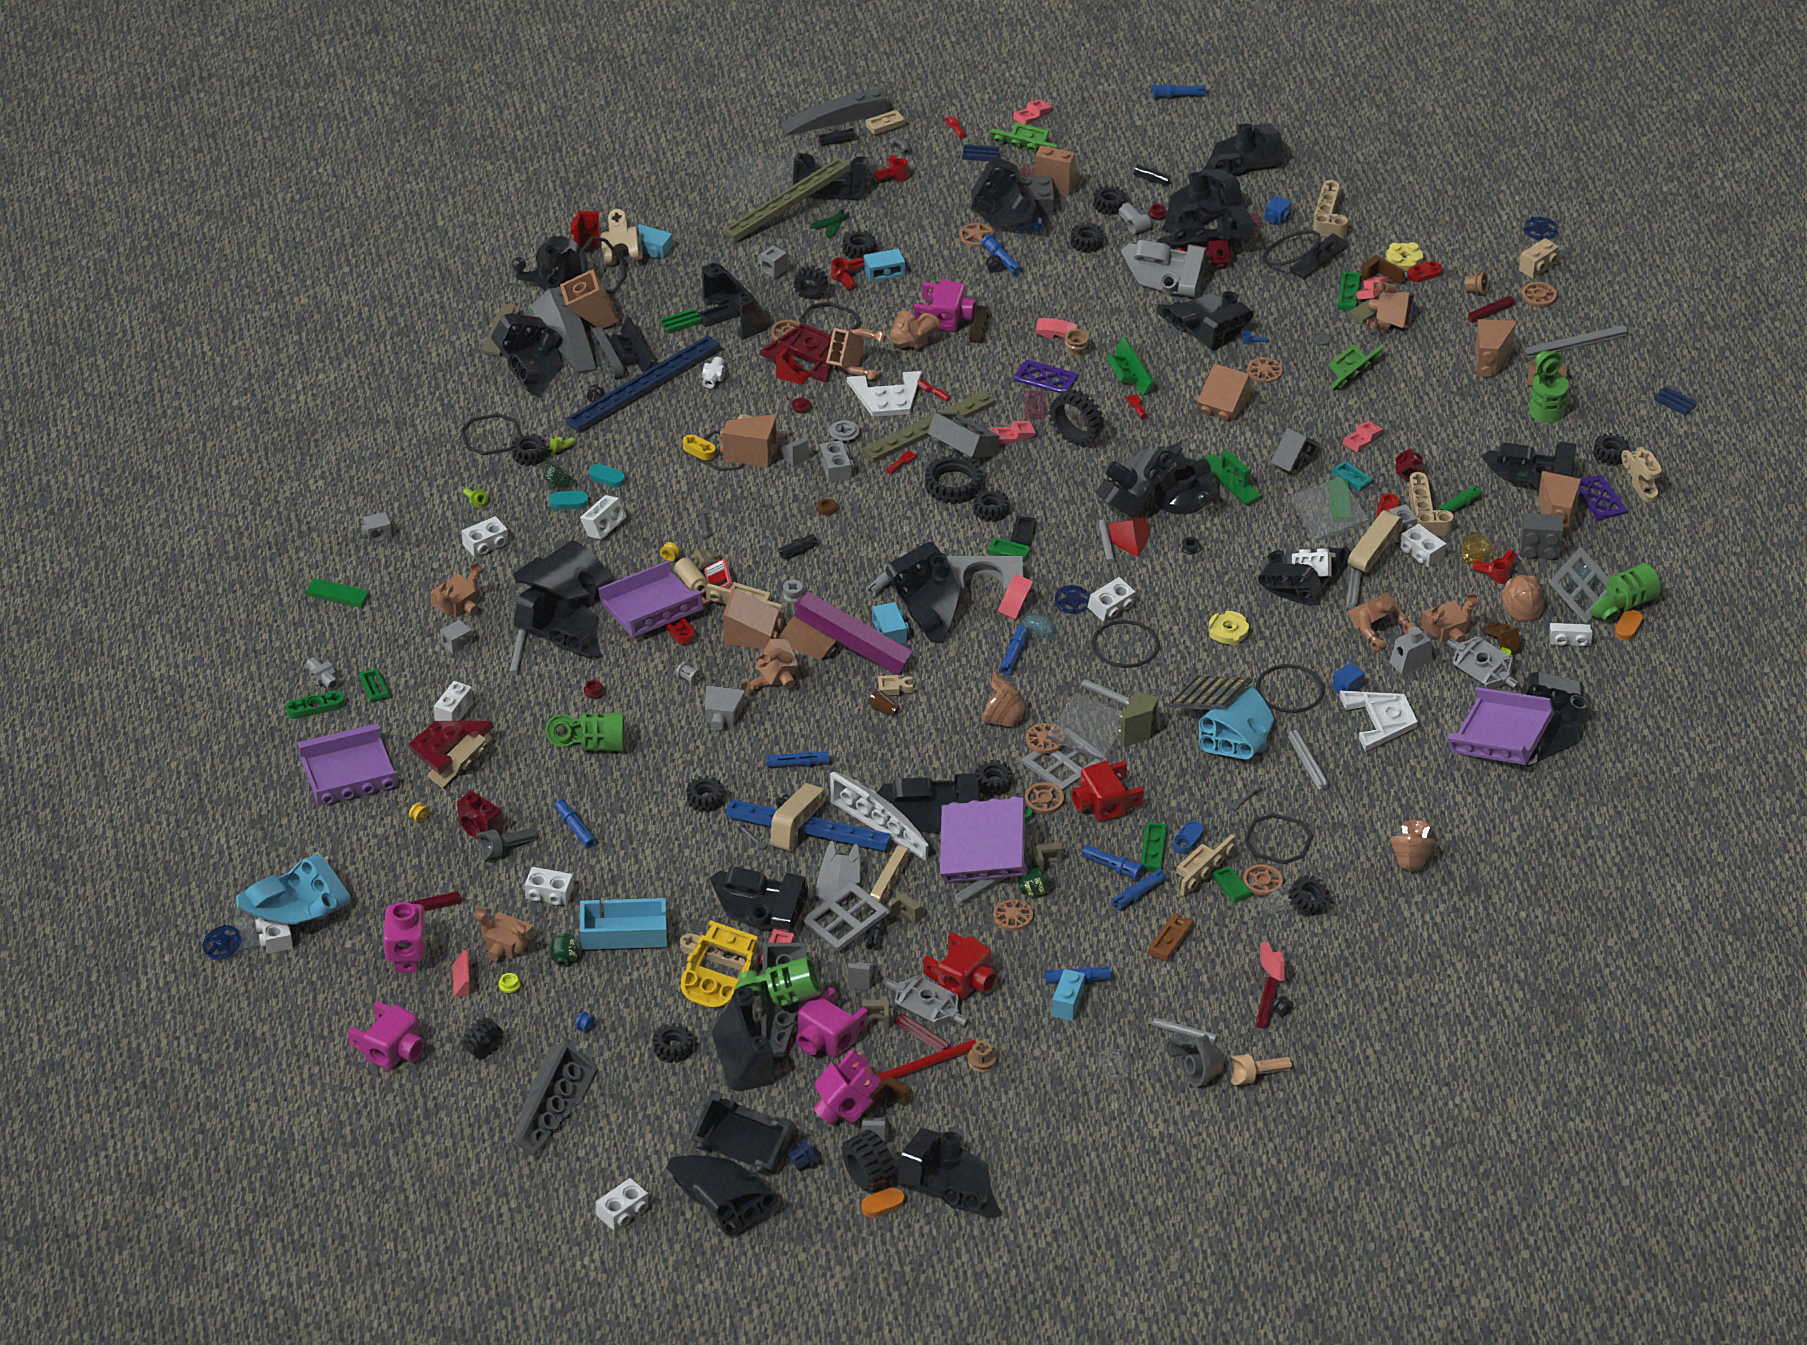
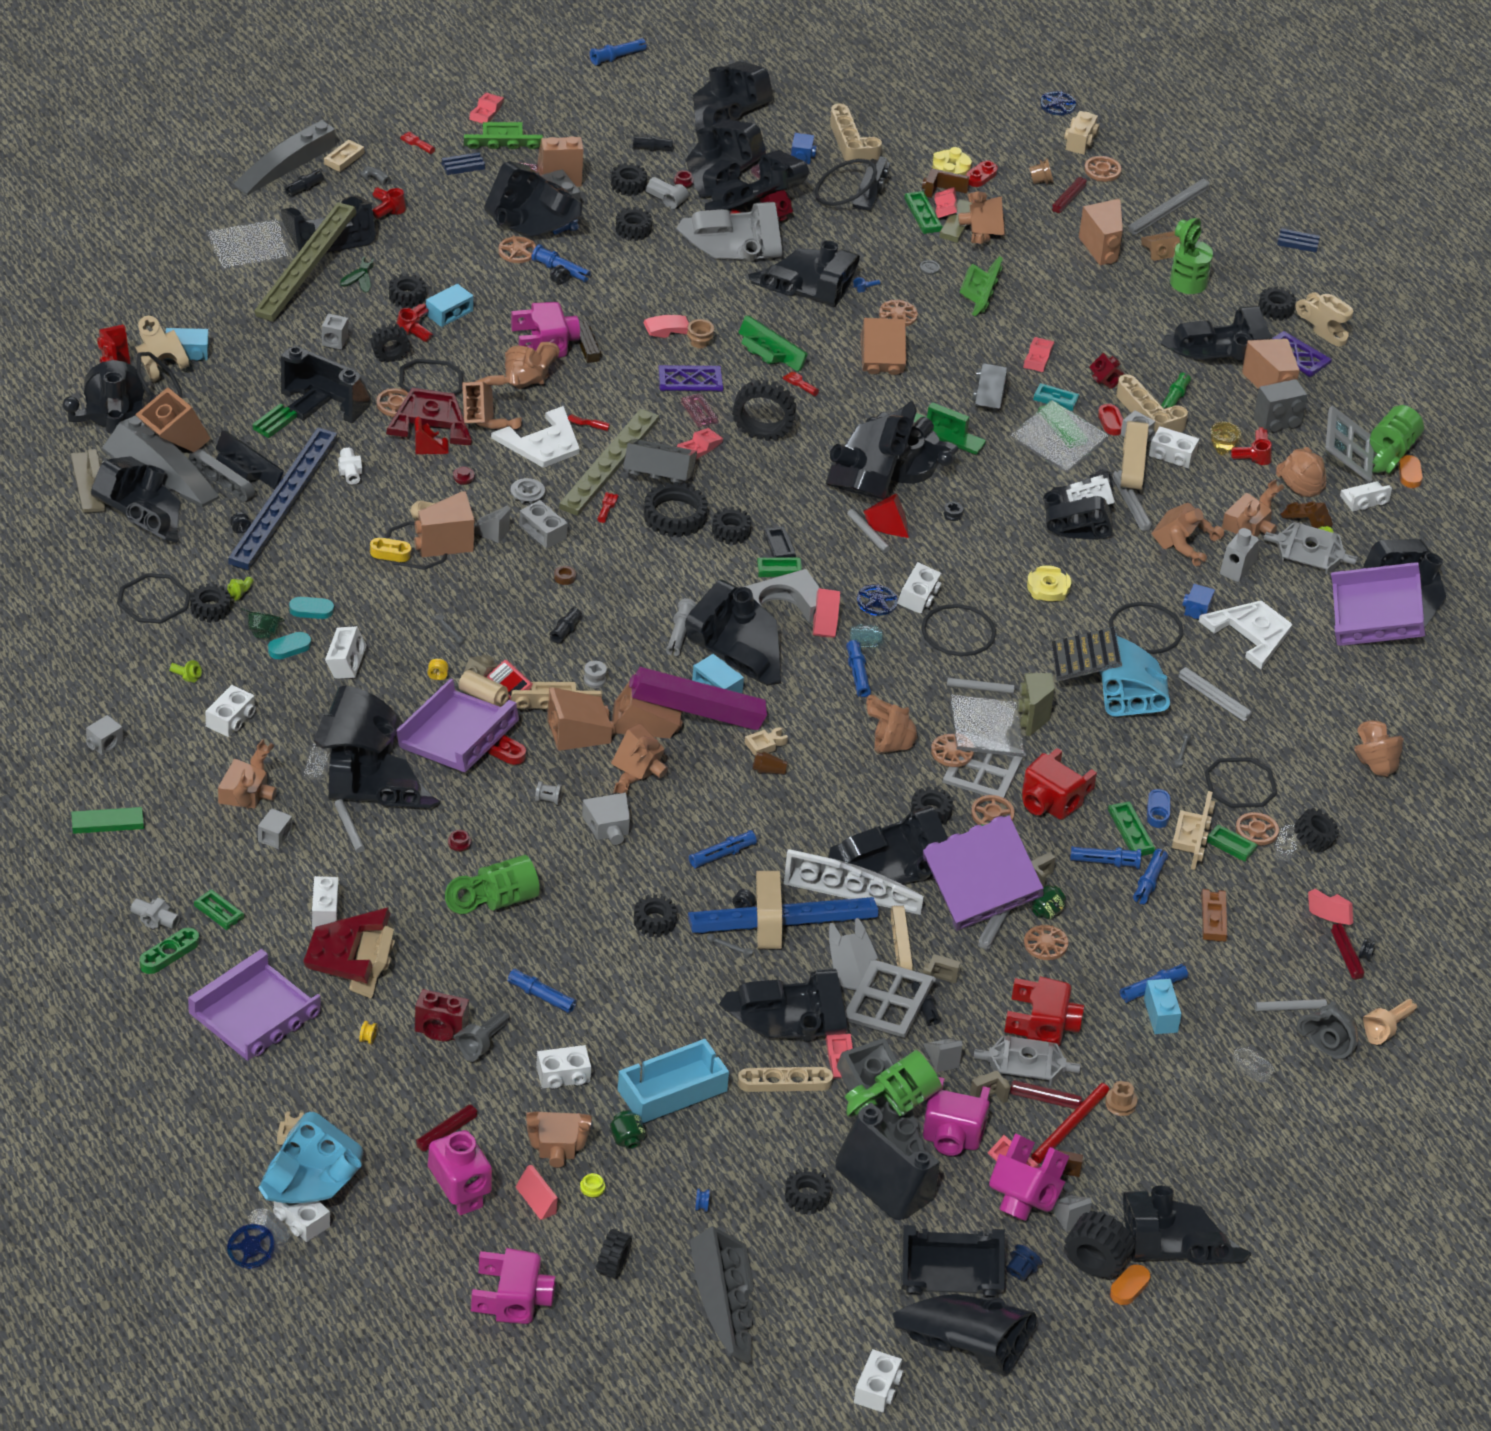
camera: 30 degrees left, 0 degrees up
(708, 986) = (801, 1118): yellow slope -> none

